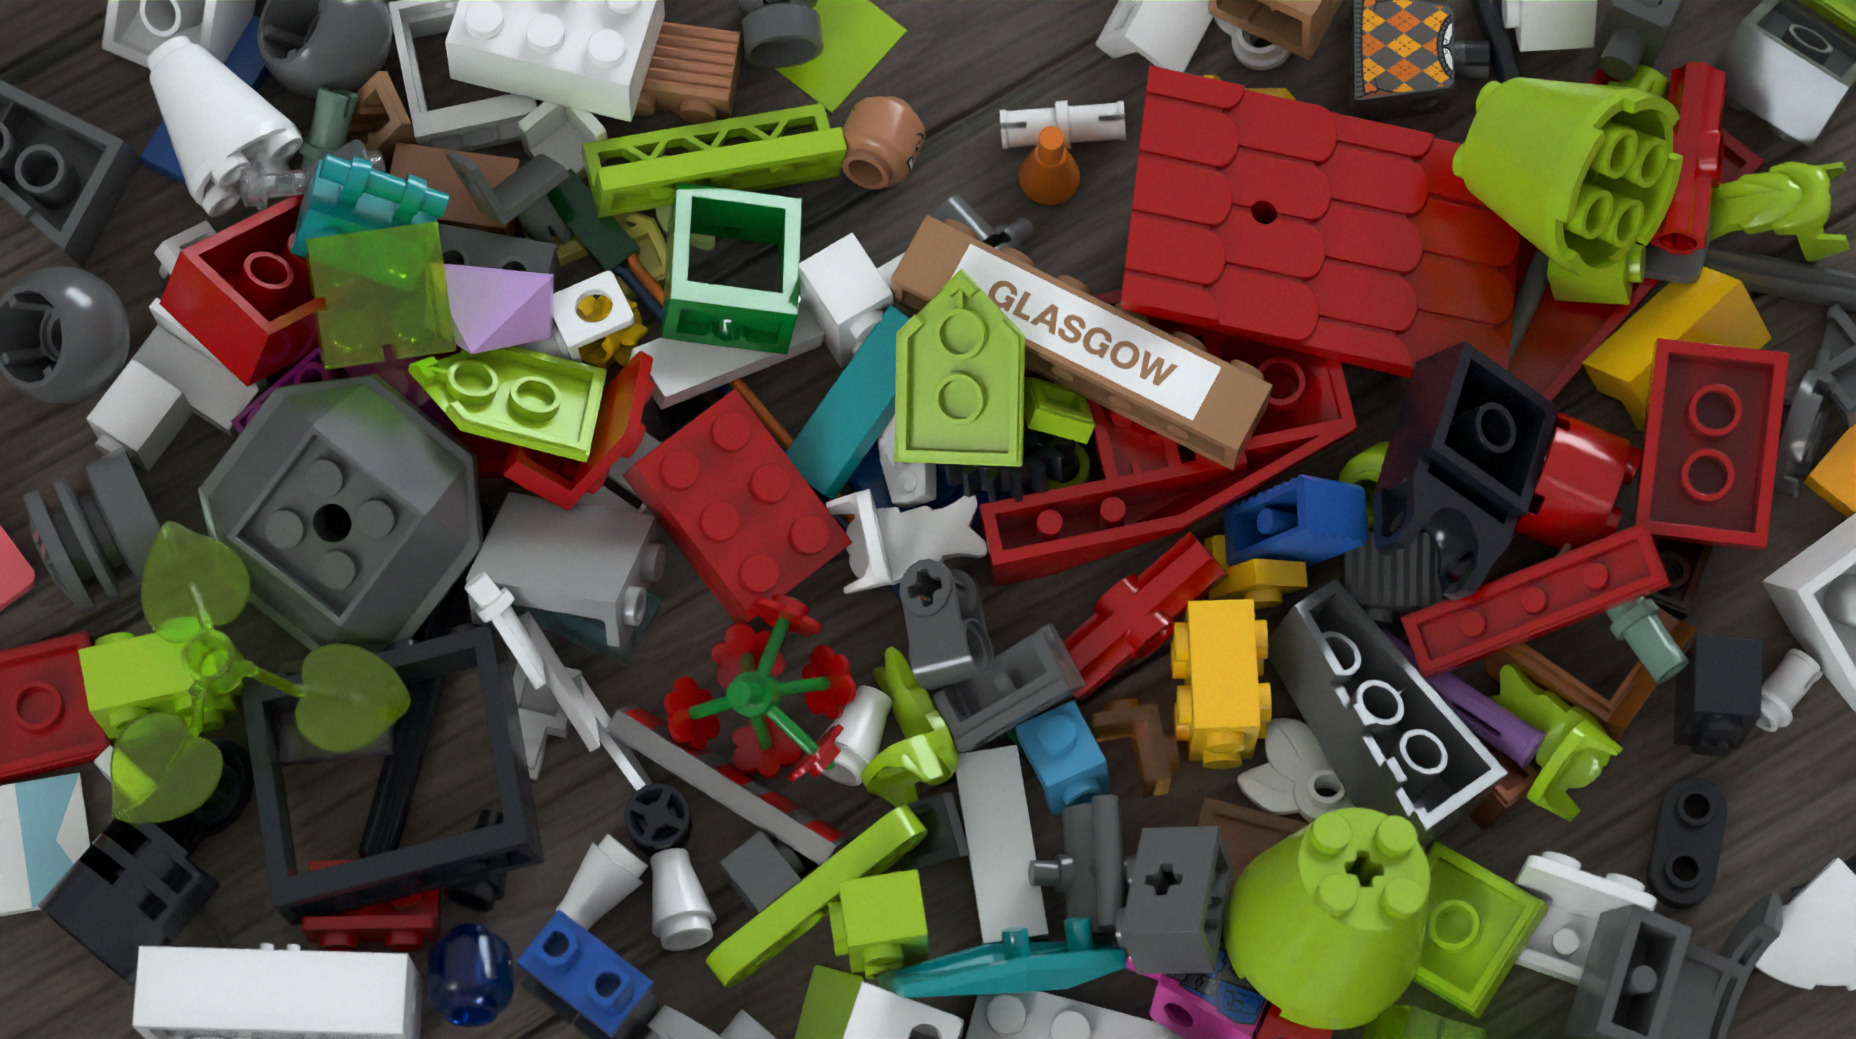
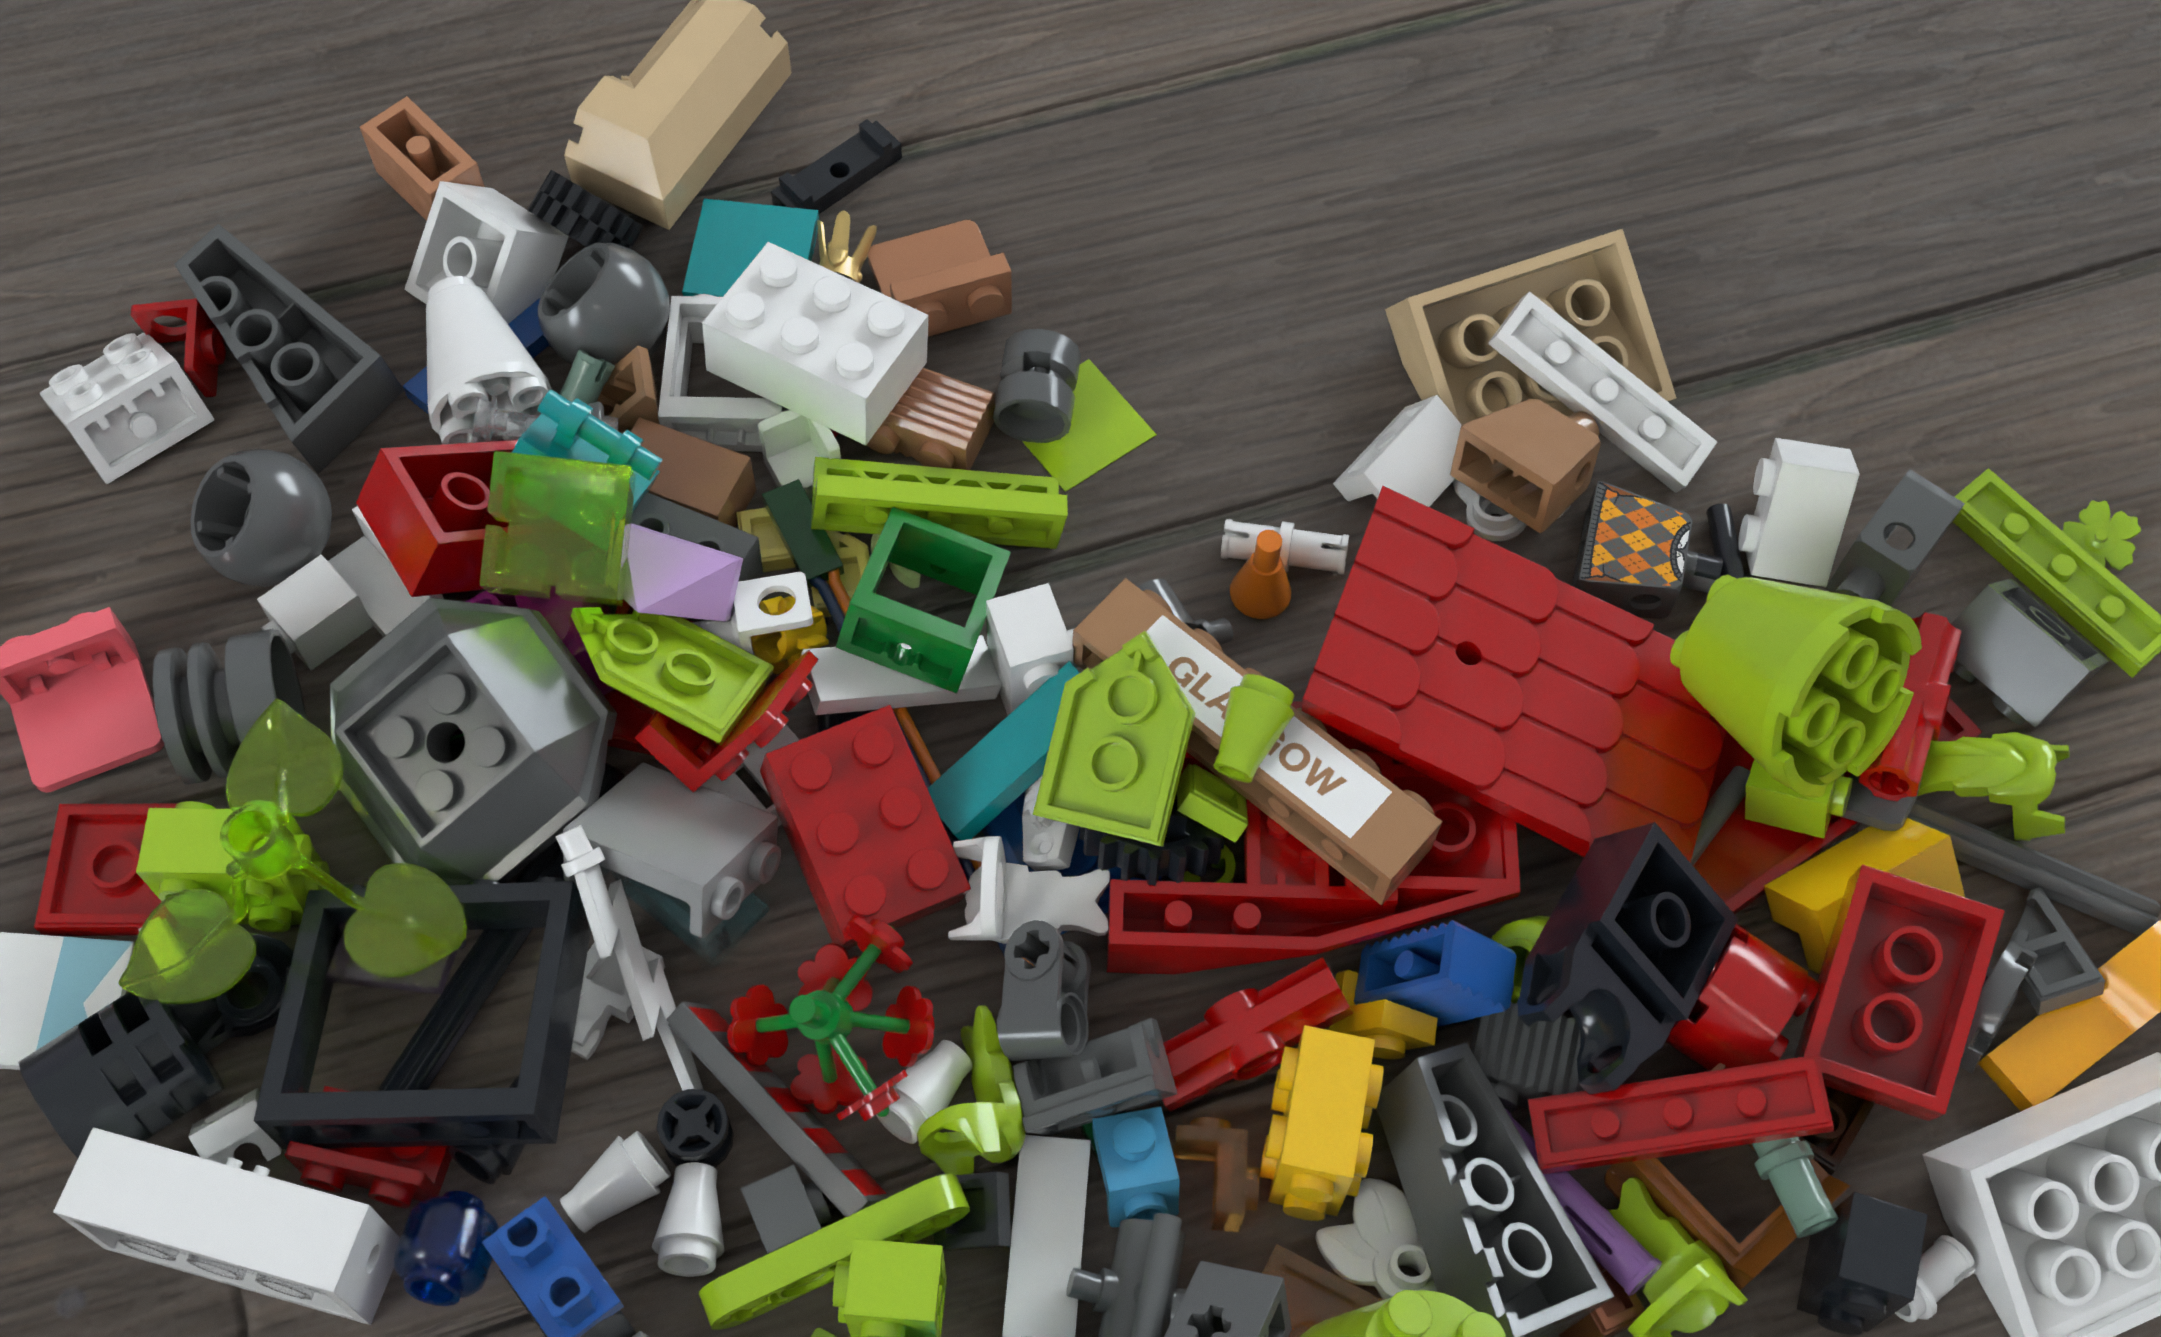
camera: 10 degrees right, 10 degrees down
(240, 914) = (228, 1128): none -> white tile
(518, 195) = (739, 487): dark grey bracket -> none
(881, 142) = (1104, 522): nougat head -> none
(1080, 337) = (1252, 724): none -> lime cone

